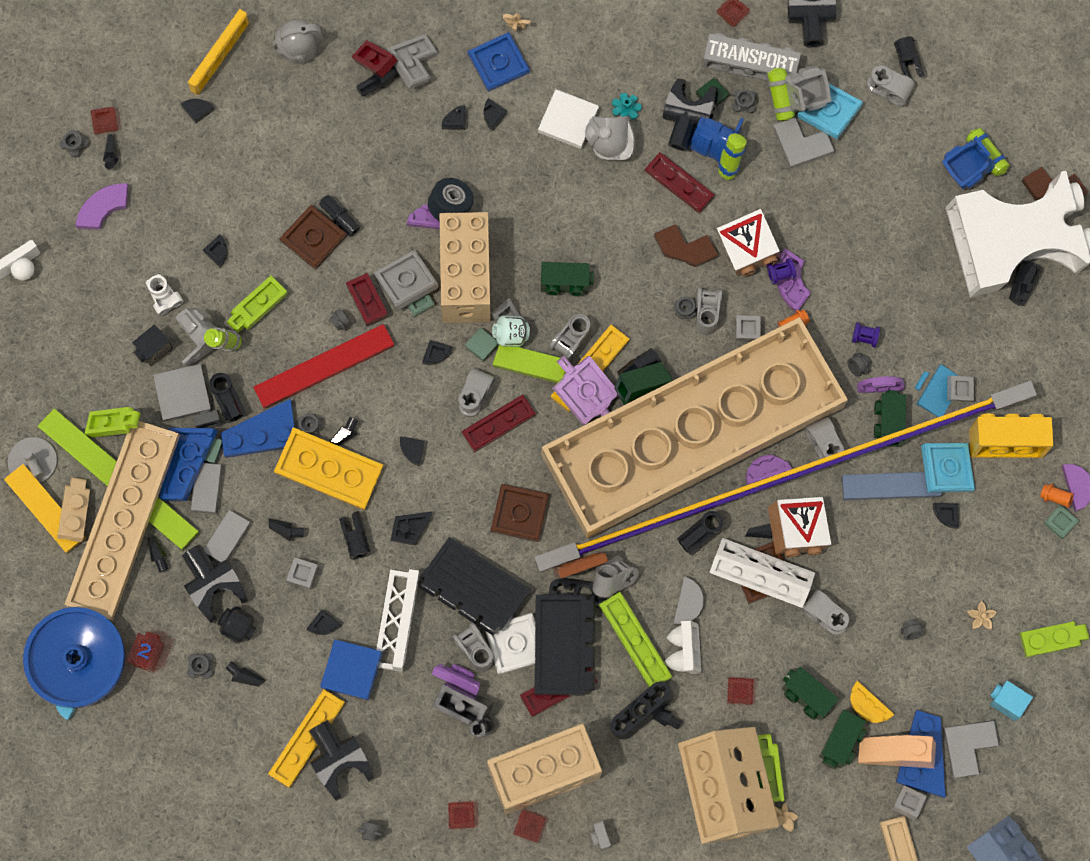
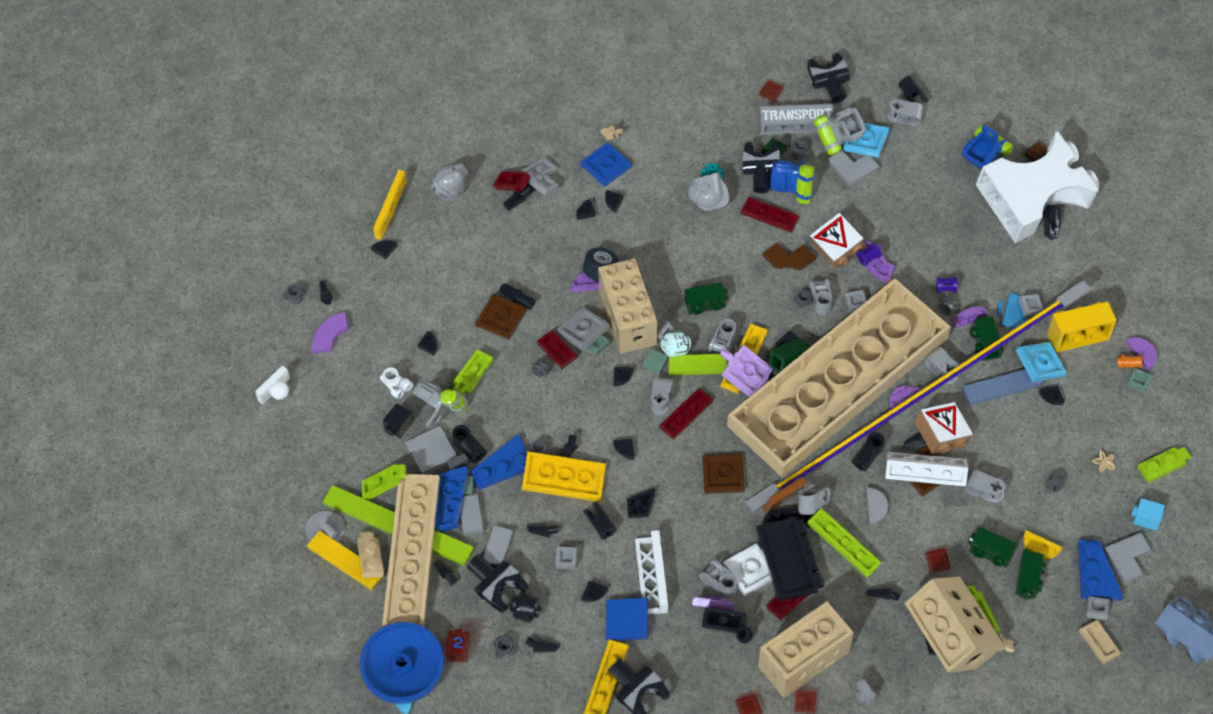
camera: 10 degrees left, 15 degrees down
(104, 120) = (313, 272): clear red tile -> none
(323, 366) = (537, 405): red tile -> none
(475, 585) = (705, 533): black hinge -> none
(567, 118) = (671, 191): white tile -> none
(632, 728) = (866, 582): black beam -> none
(689, 658) = (889, 546): white tile -> none
(898, 751) = (1076, 569): light nougat slope -> none

